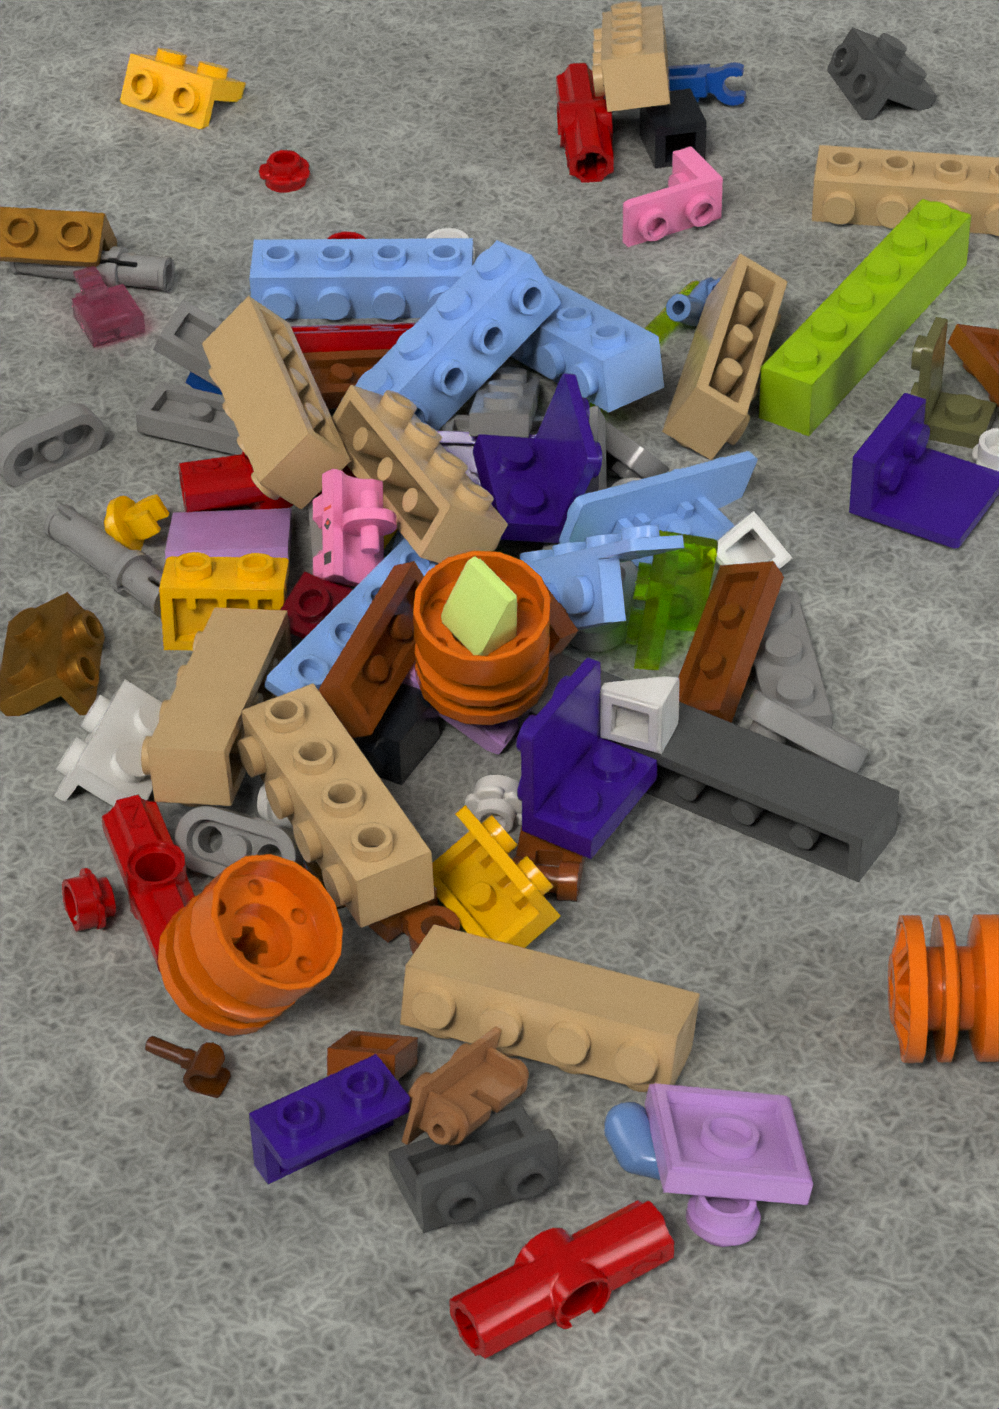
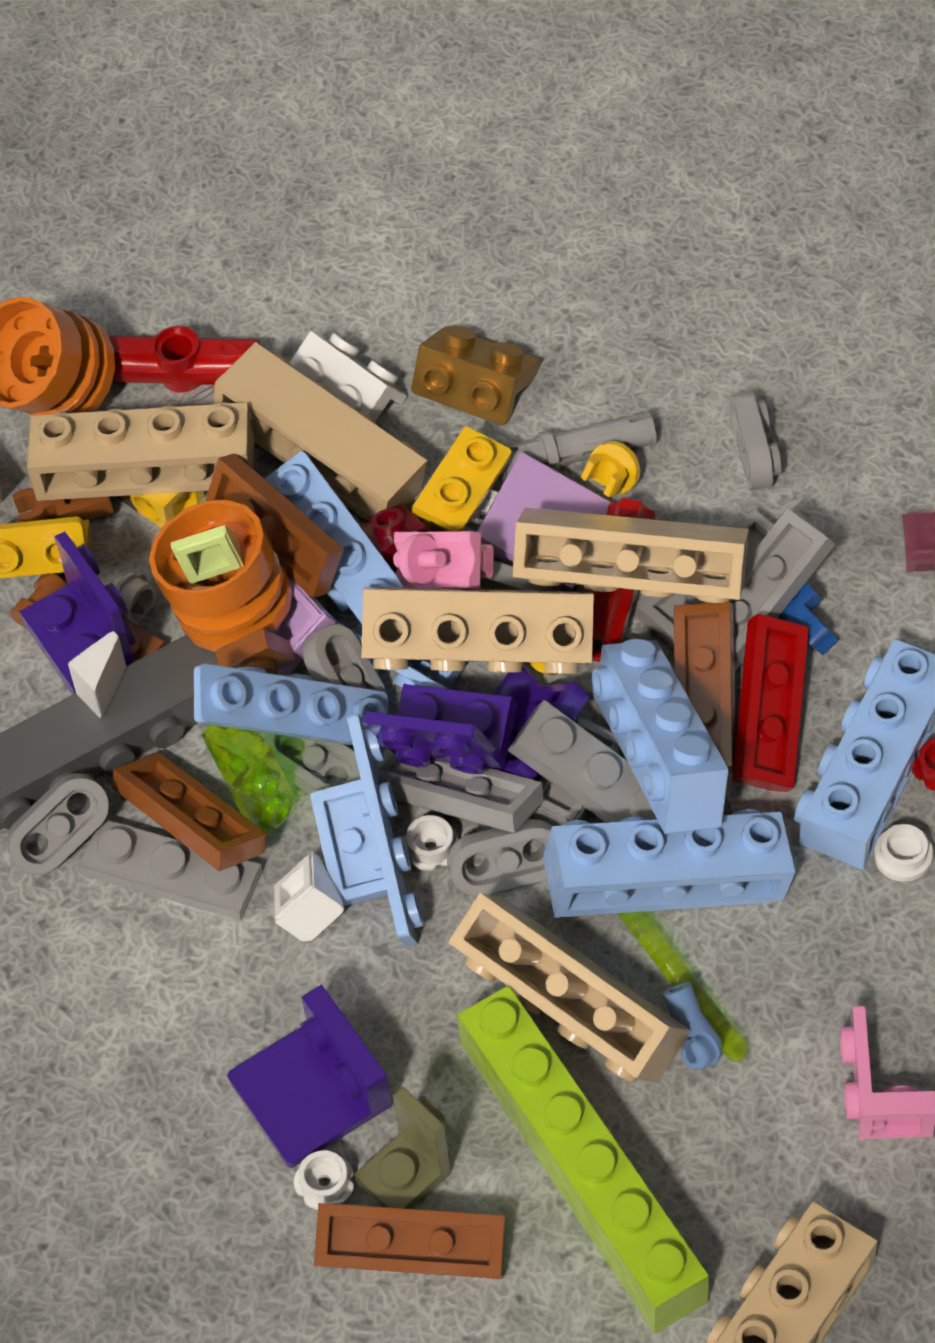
camera: 120 degrees right, 15 degrees up
(88, 899) = (200, 317): red plate -> none

